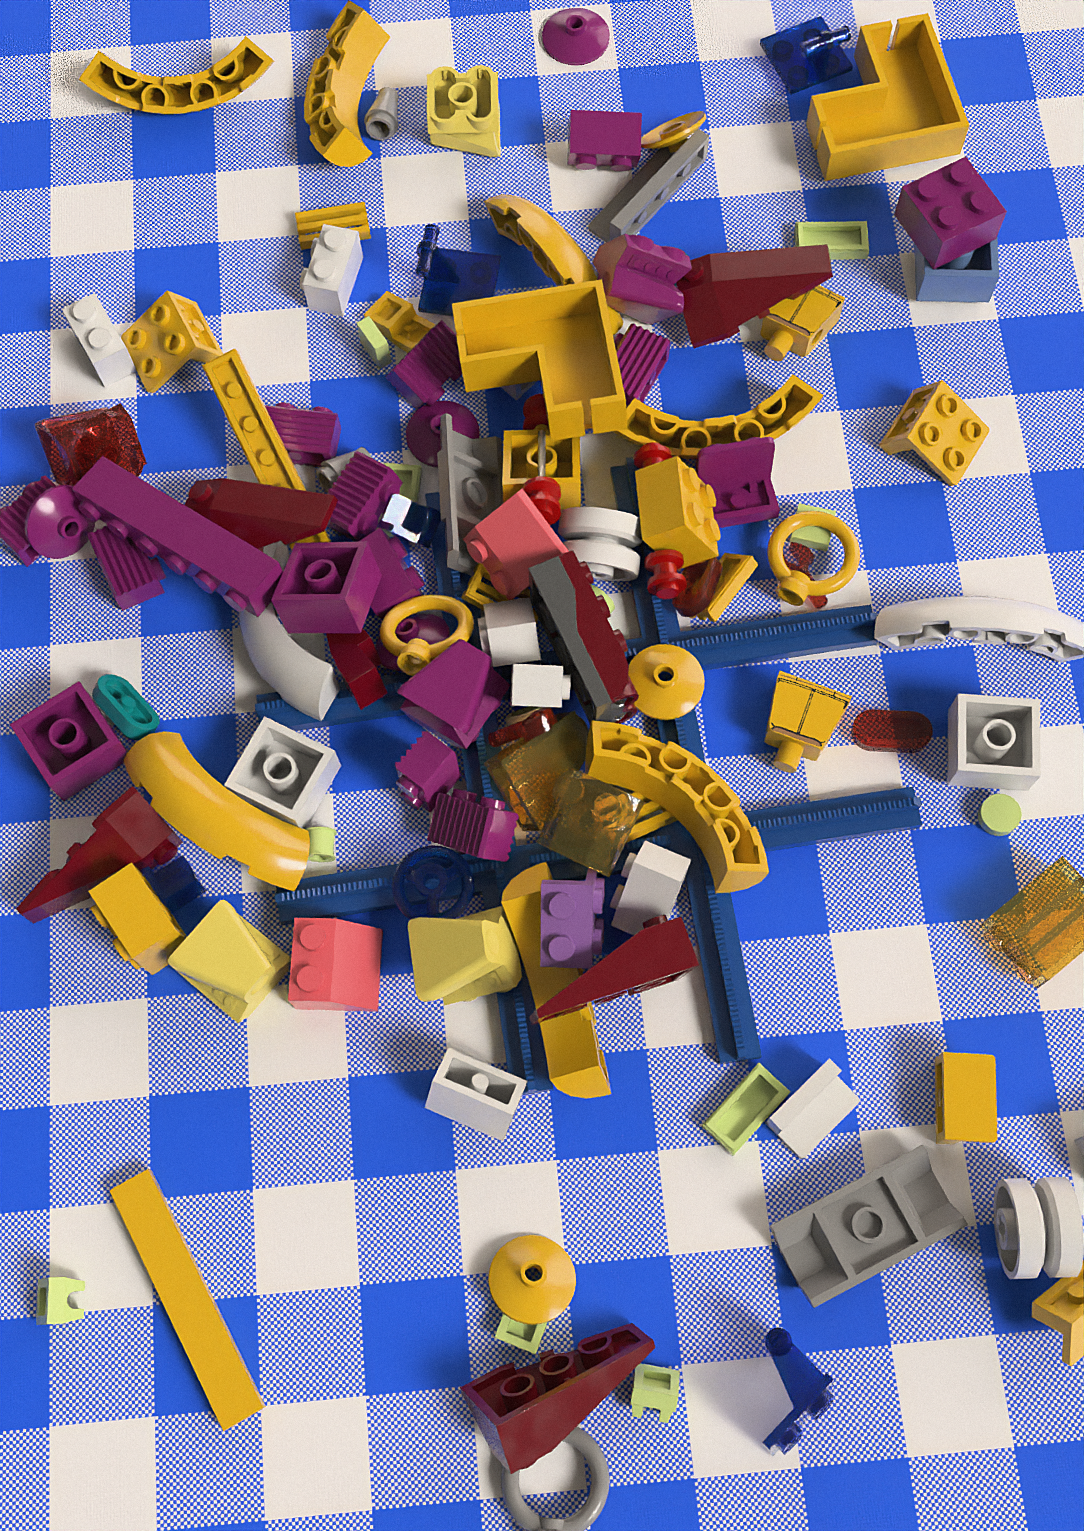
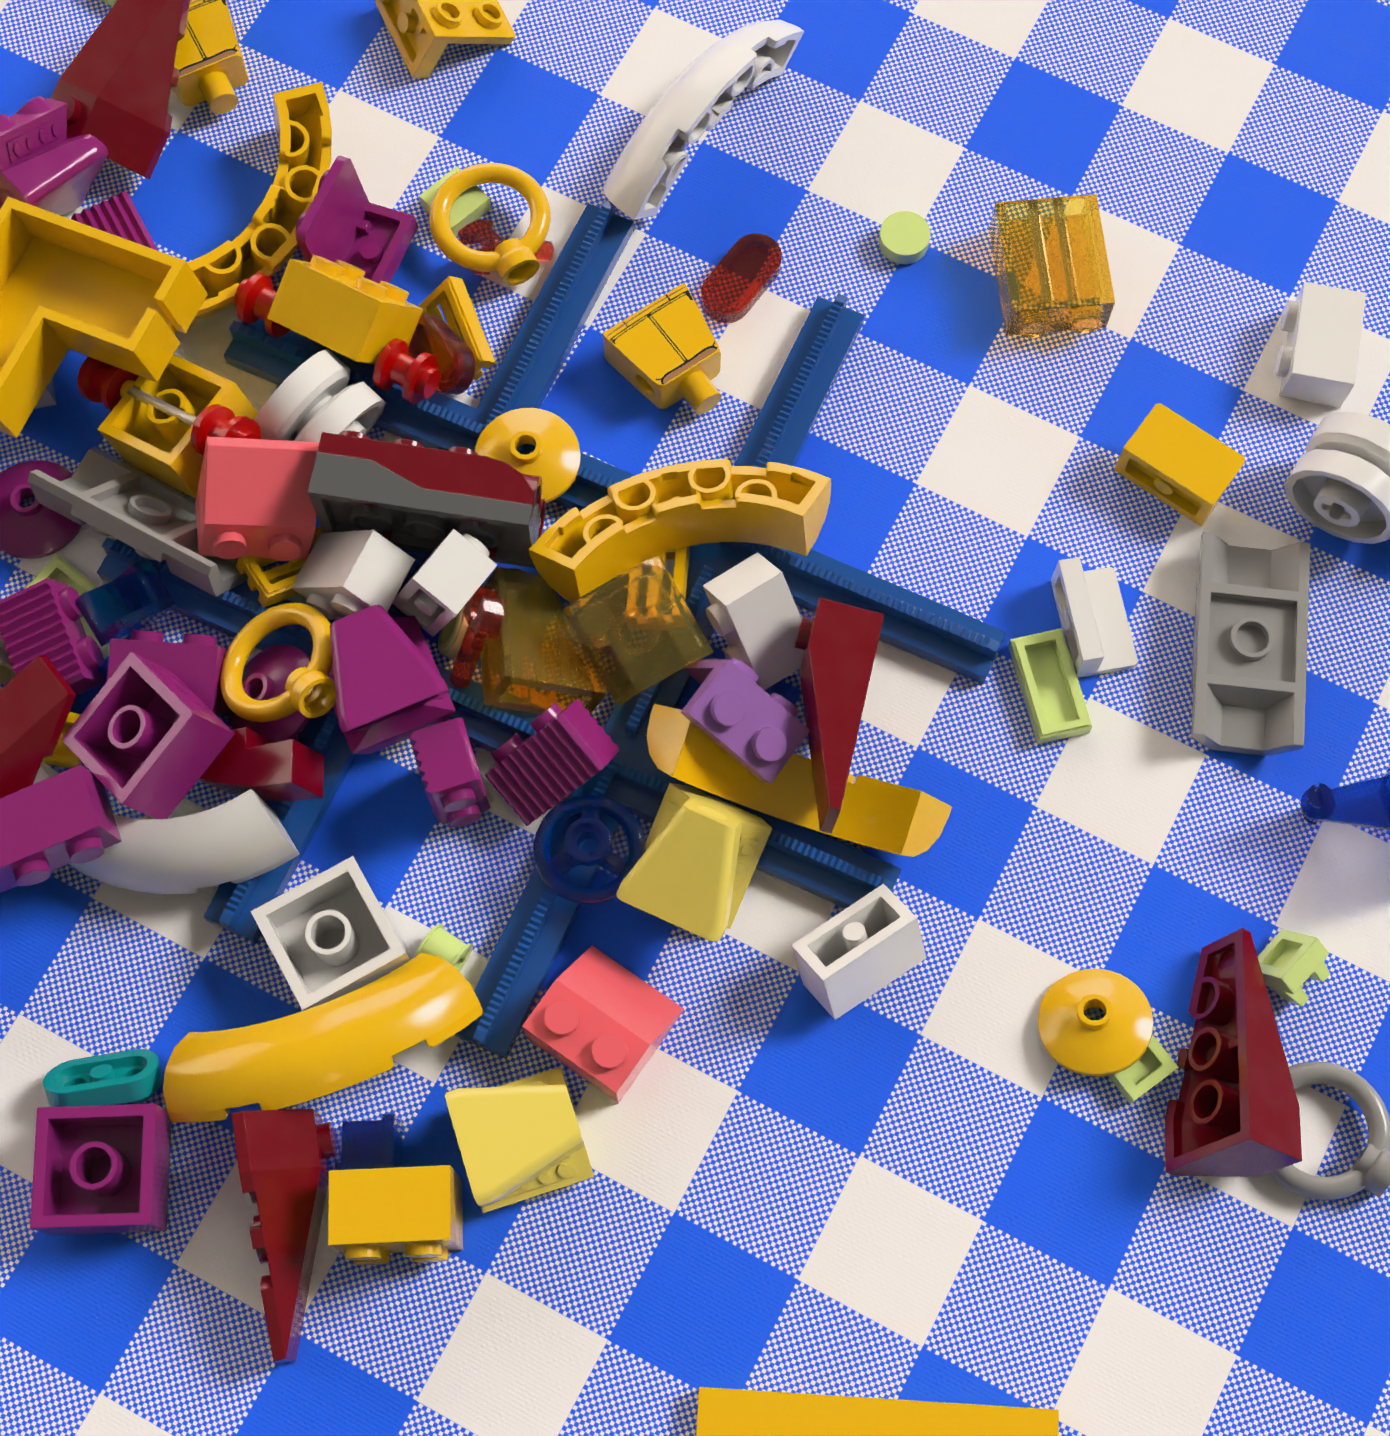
camera: 60 degrees left, 0 degrees up
(994, 742) = (829, 185): white brick -> none

